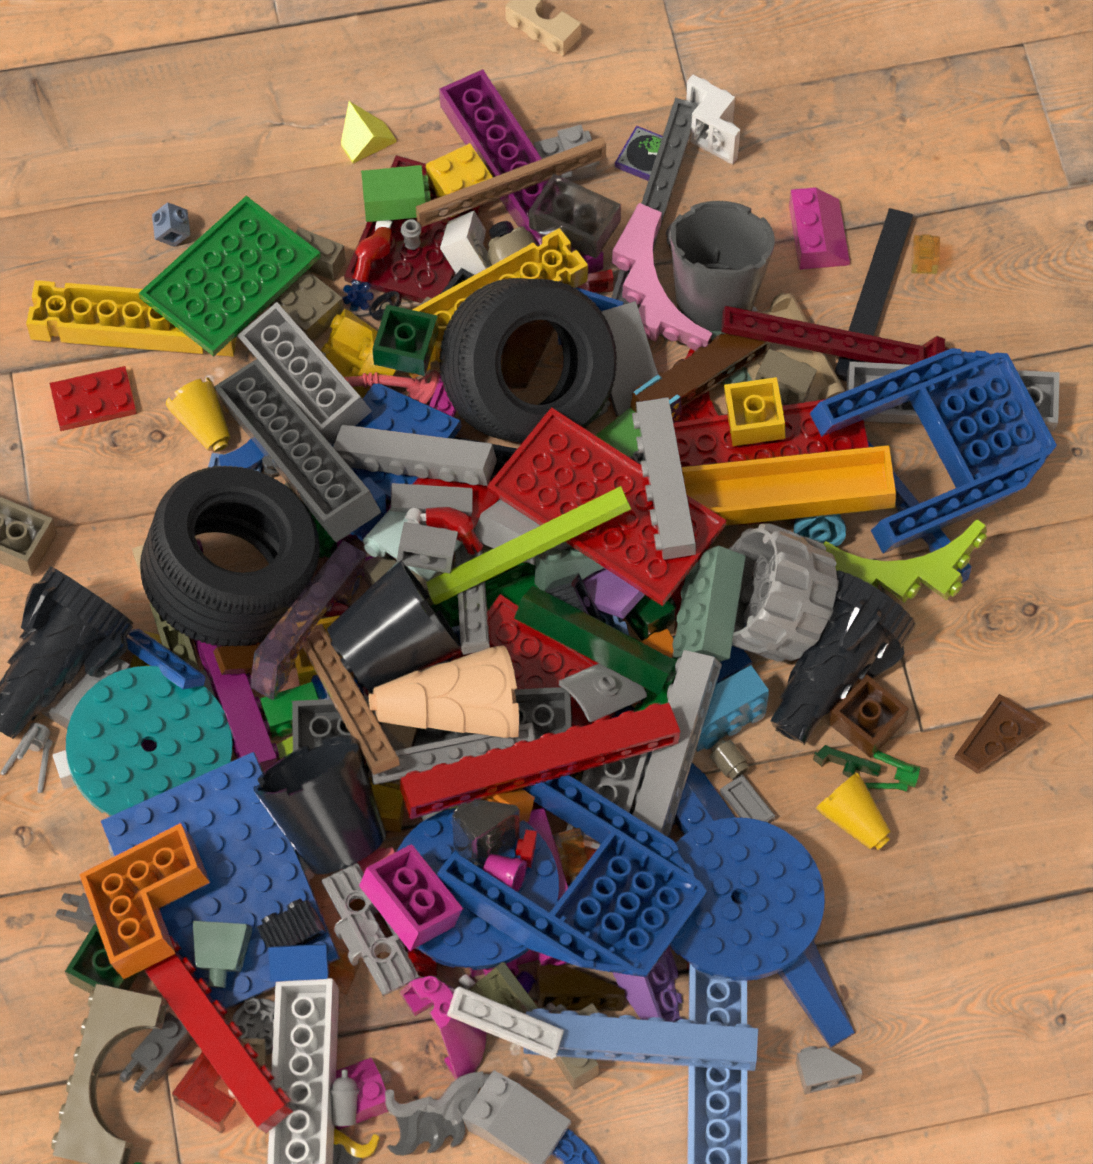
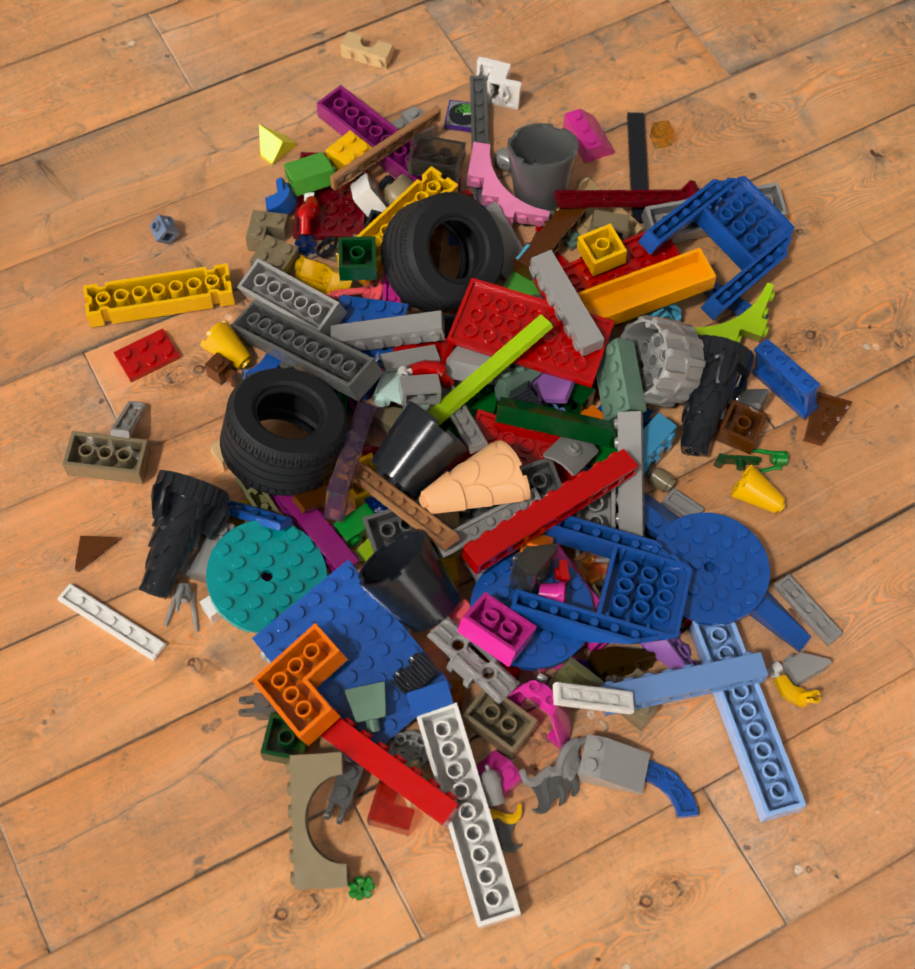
camera: 20 degrees left, 0 degrees up
(39, 483) = (129, 419): none -> light grey tile
(182, 445) = (221, 370): none -> reddish brown brick
(229, 275) = (218, 250): green plate -> none
(347, 223) = (284, 200): none -> blue brick
(387, 1024) = (501, 724): none -> dark tan brick
(411, 230) = (330, 194): light grey pin -> none
(791, 1096) = (789, 692): none -> yellow arm
(865, 994) = (808, 610): none -> light grey tile
(900, 682) = (754, 398): none -> dark grey slope
(954, 664) = (785, 378): none -> blue fence

